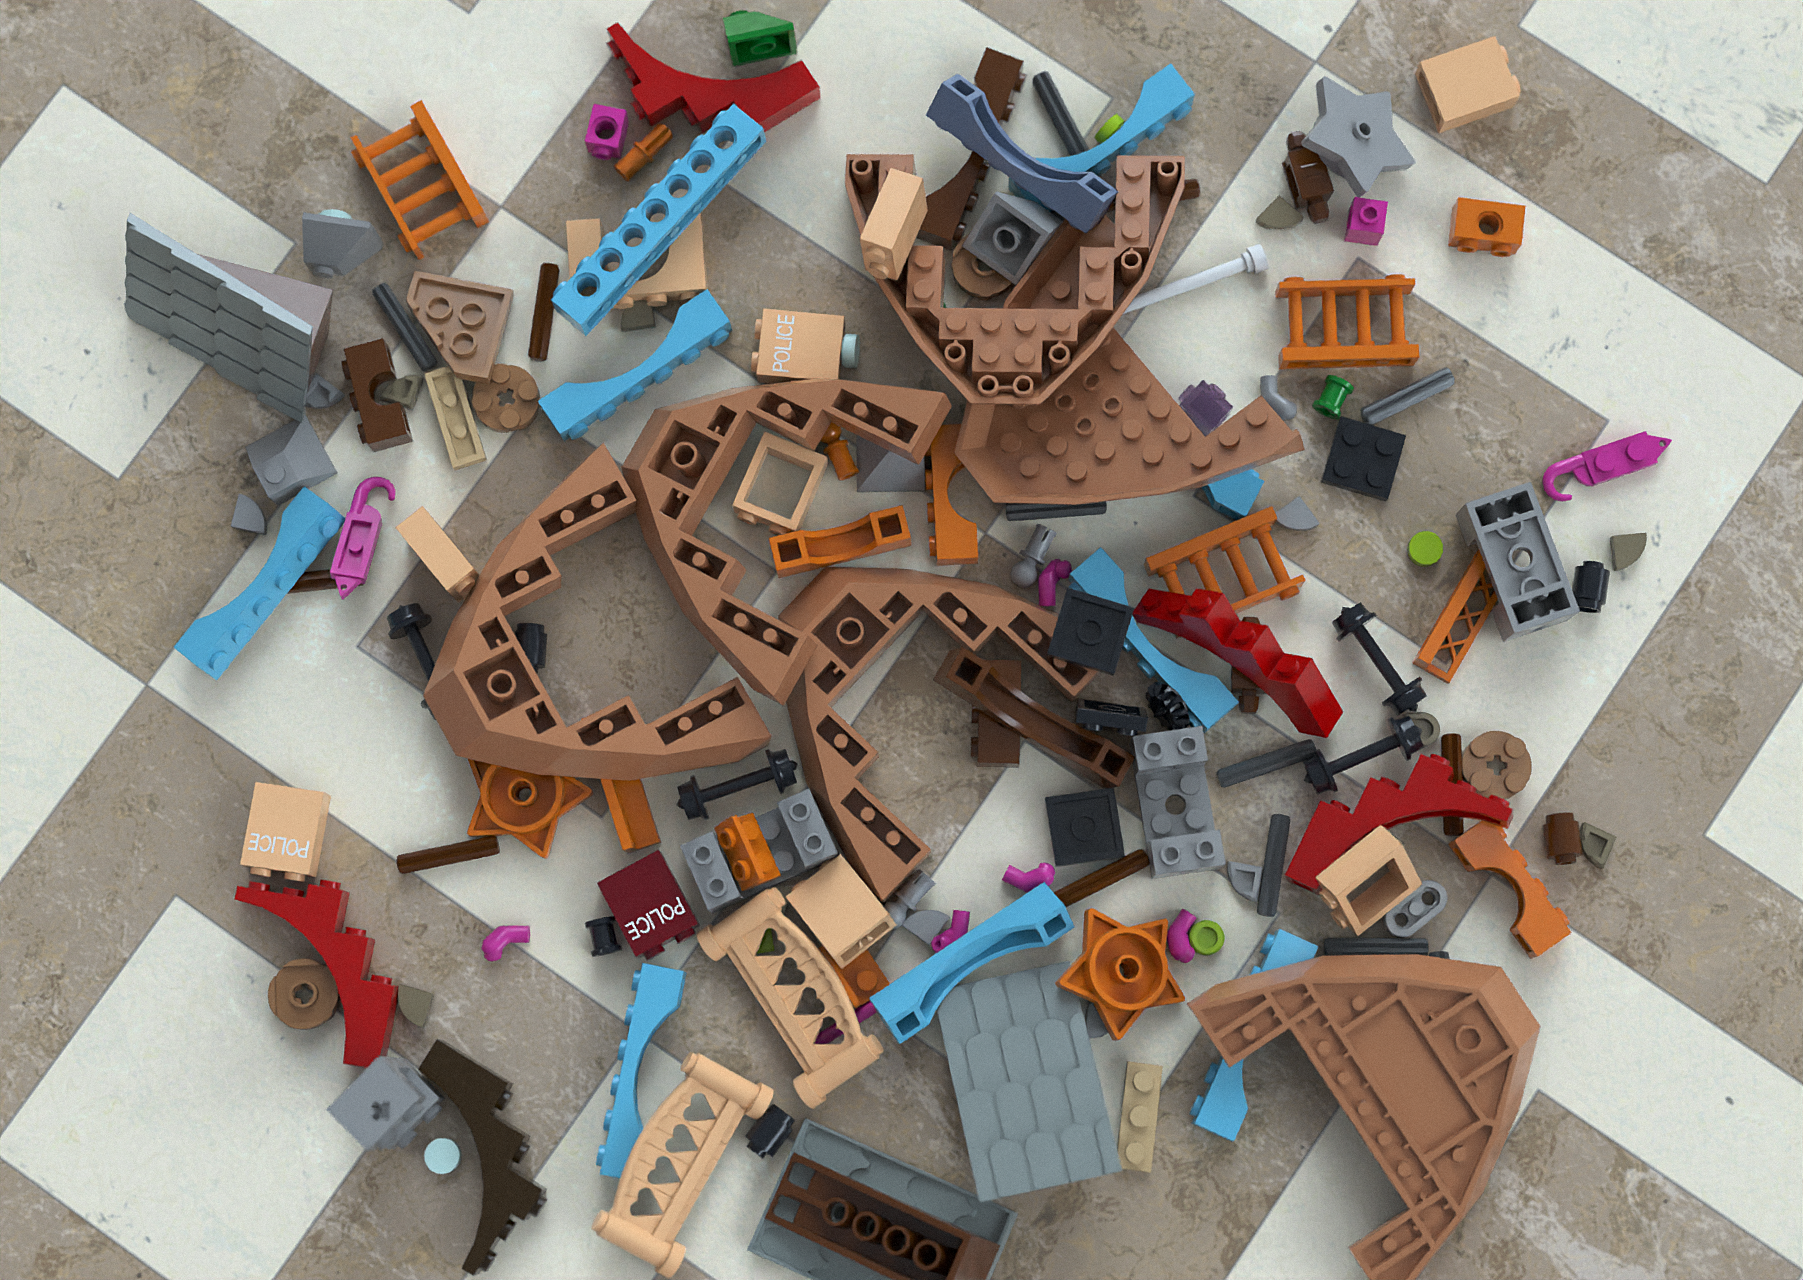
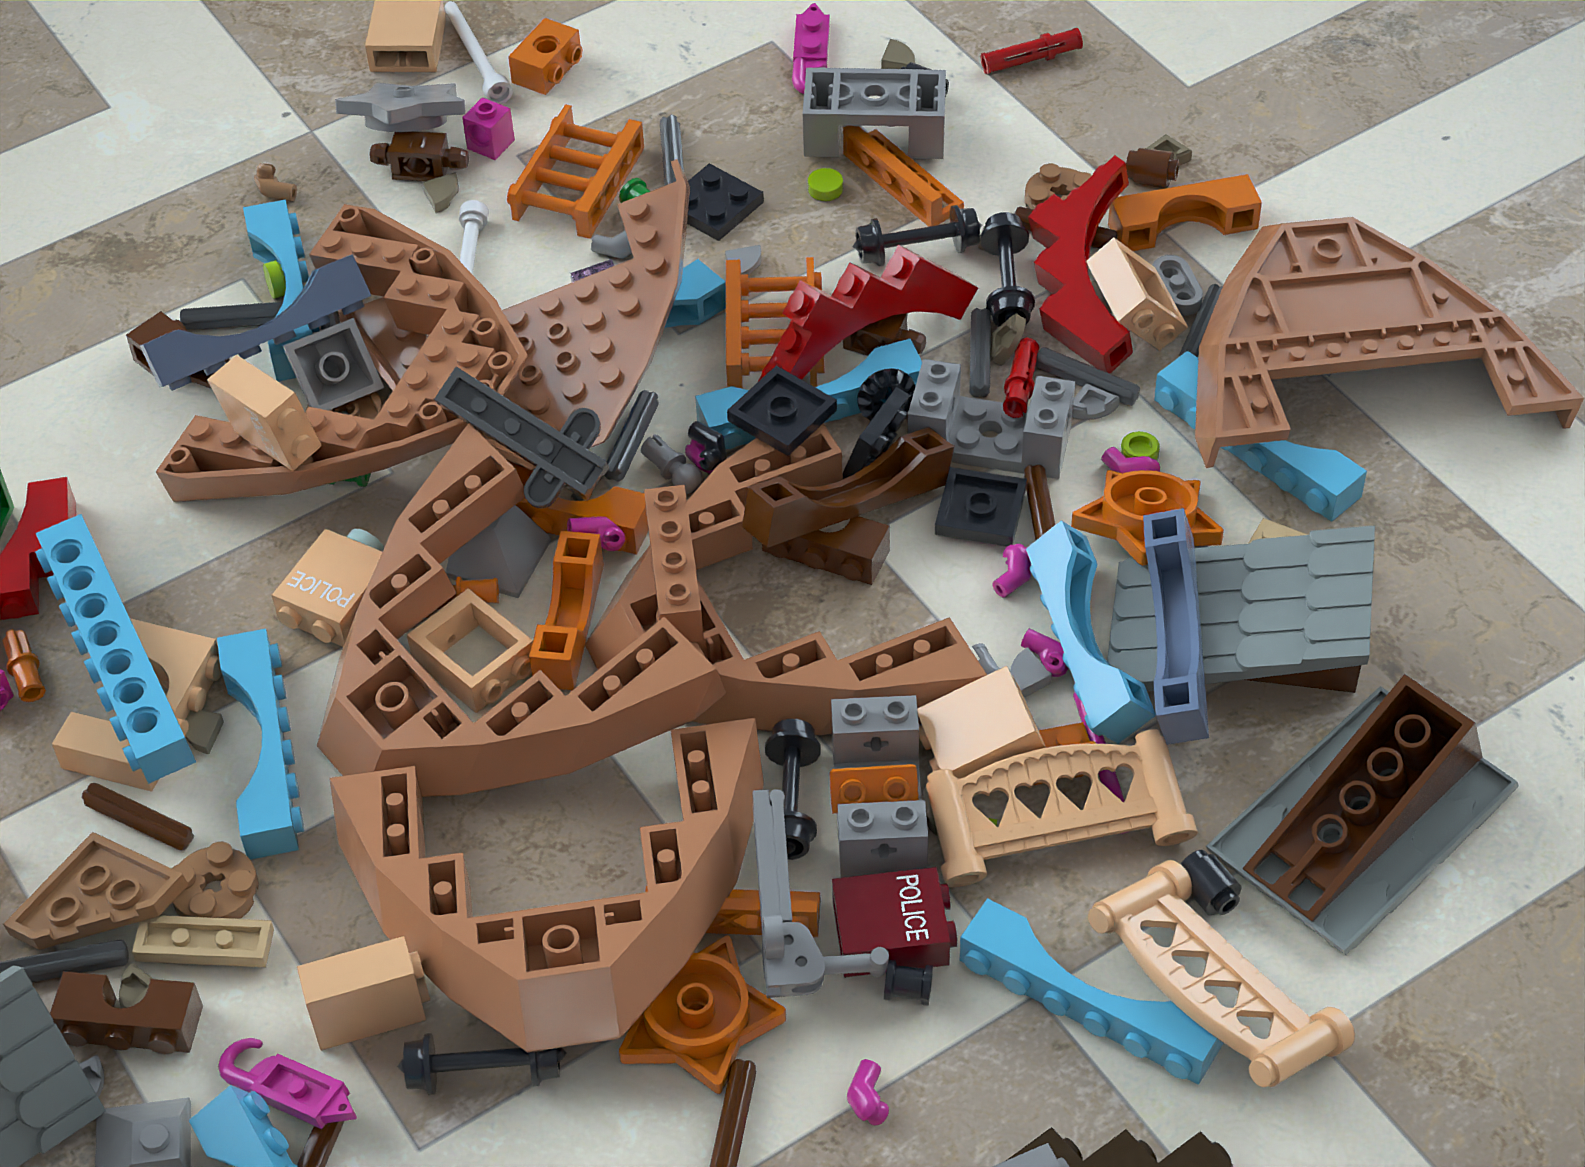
camera: 70 degrees left, 30 degrees down
(577, 843) = (789, 952): none -> light grey piece
(886, 613) = (674, 560): none -> nougat brick
(923, 534) = (611, 535): none -> dark pink arm
(928, 1054) = (1180, 665): none -> sand blue arch
(951, 483) = (559, 457): none -> dark grey piece
(1054, 584) = (713, 444): none -> black arm
(1225, 814) = (1020, 382): none -> red pin
(1226, 64) = (270, 186): none -> medium nougat arm
(1285, 782) = (1007, 338): none -> dark tan tile
(1429, 200) = (495, 86): none -> white piece
(1689, 677) = (1067, 41): none -> red pin

